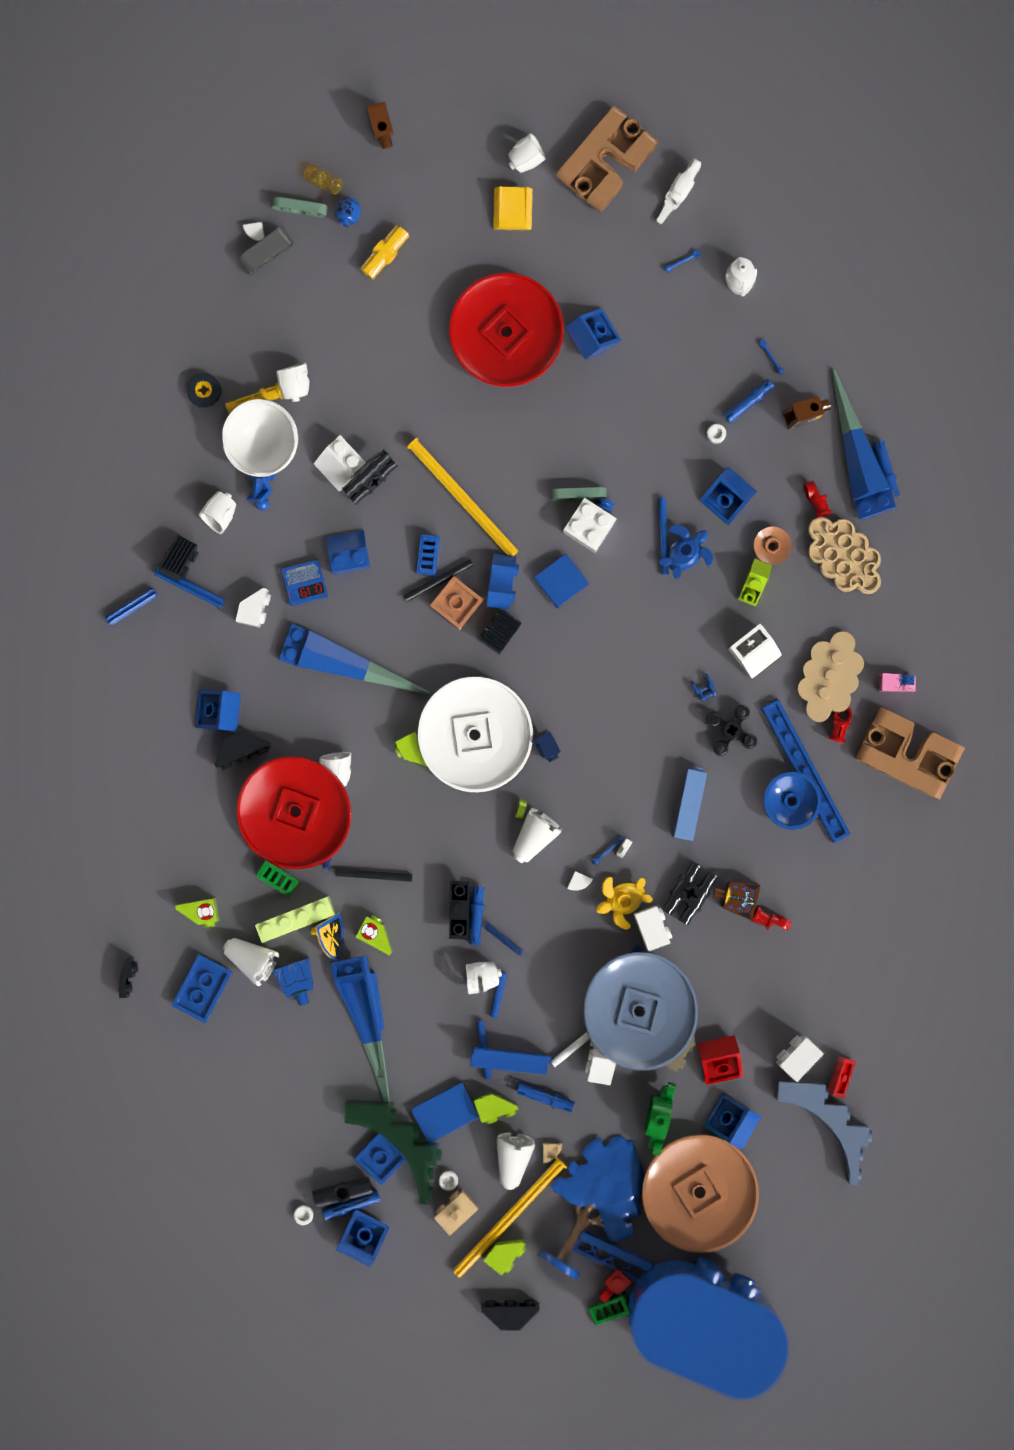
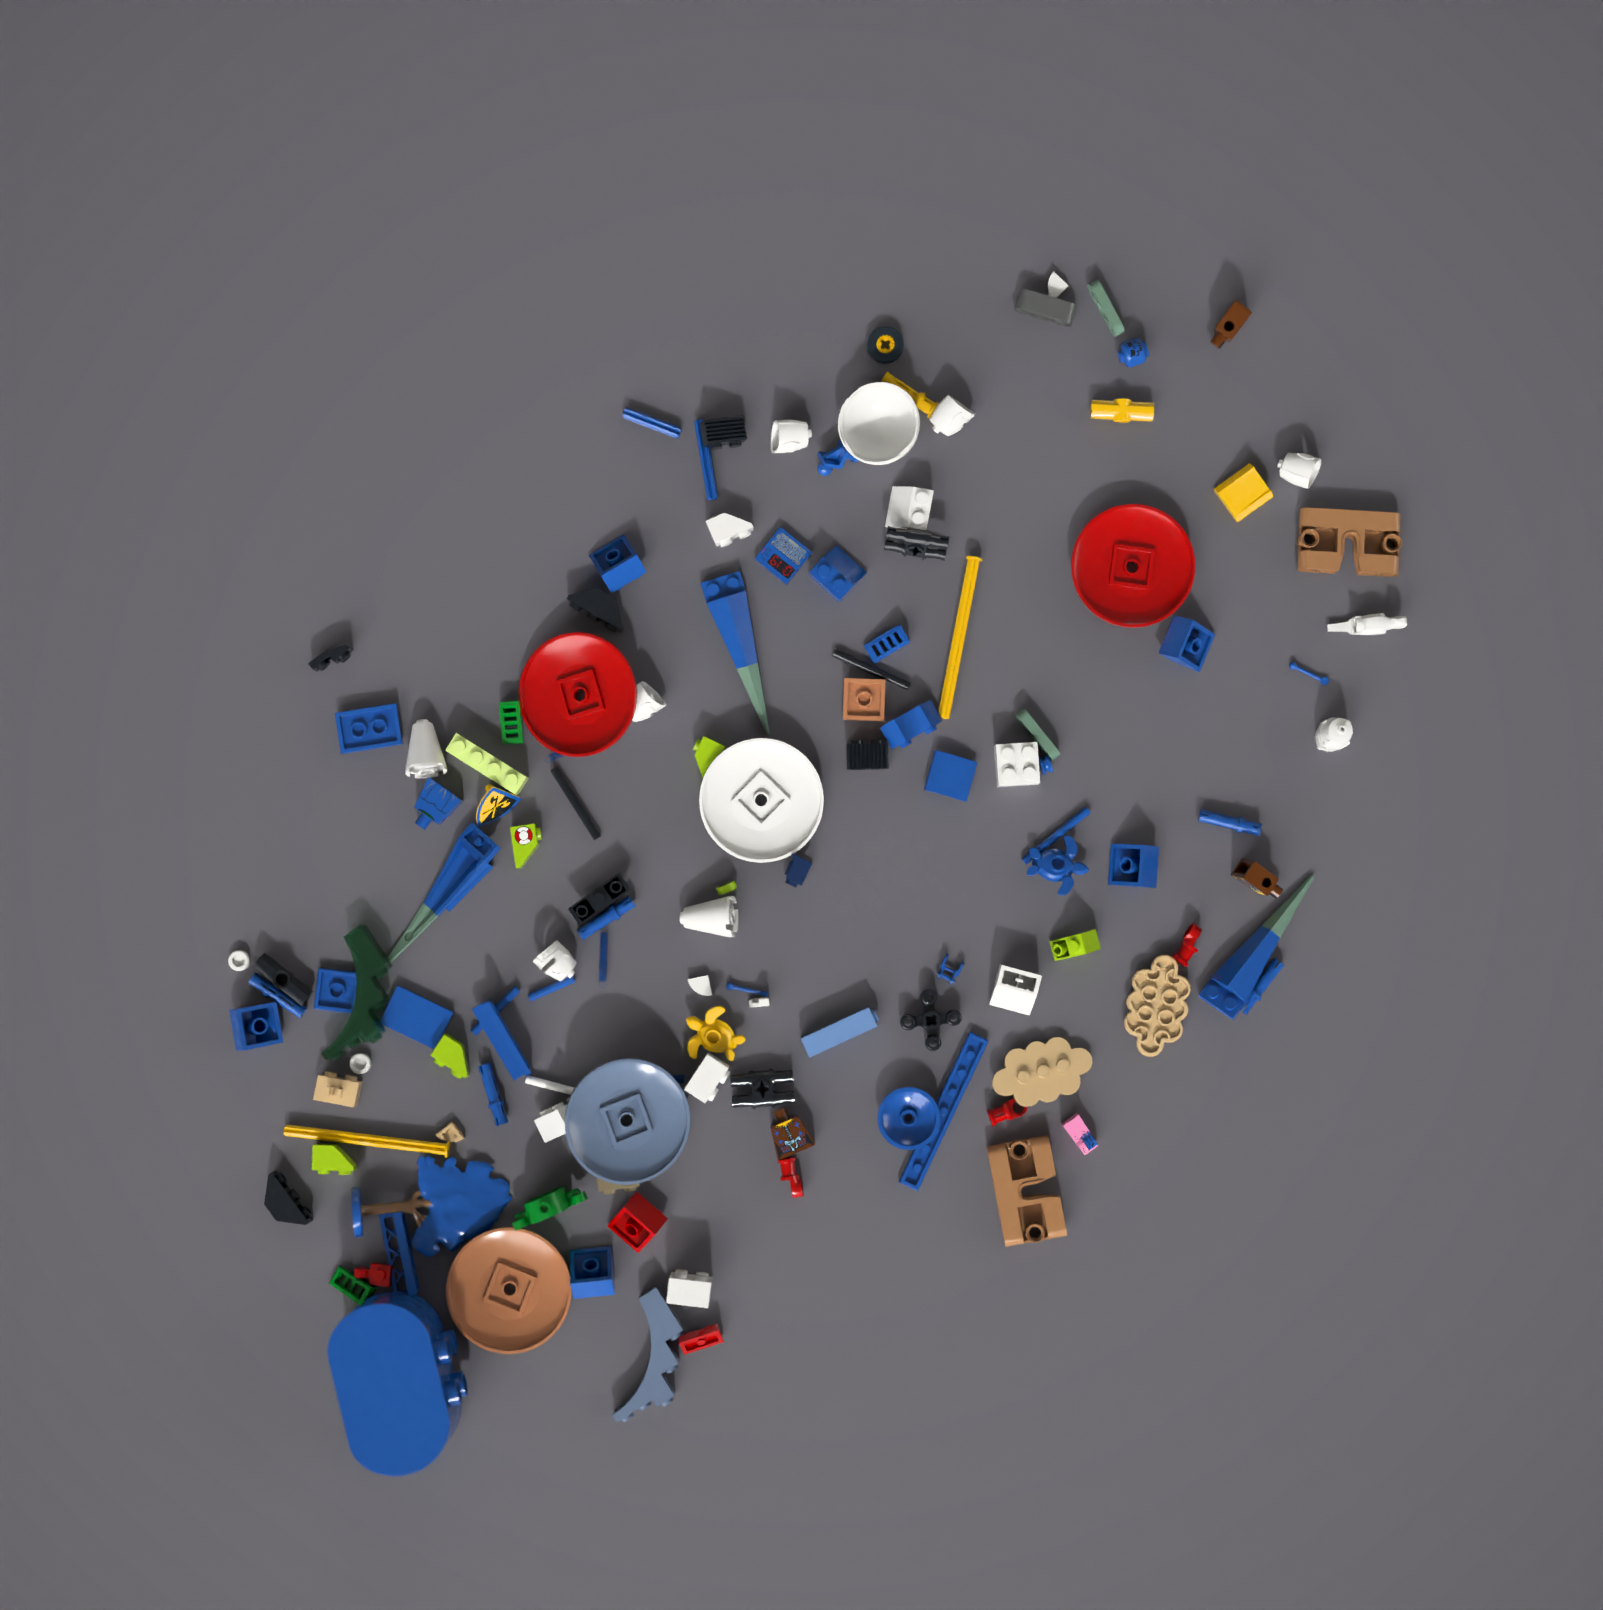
camera: 55 degrees right, 0 degrees up
(201, 912) = (433, 678): lime slope -> none
(319, 179) = (1147, 306): clear yellow connector -> none
(513, 1158) = (420, 1105): white cone -> none
(716, 433) = (1180, 815): white tile -> none
(762, 344) = (1289, 797): blue hinge -> none
(781, 541) = (1129, 936): nougat dish -> none

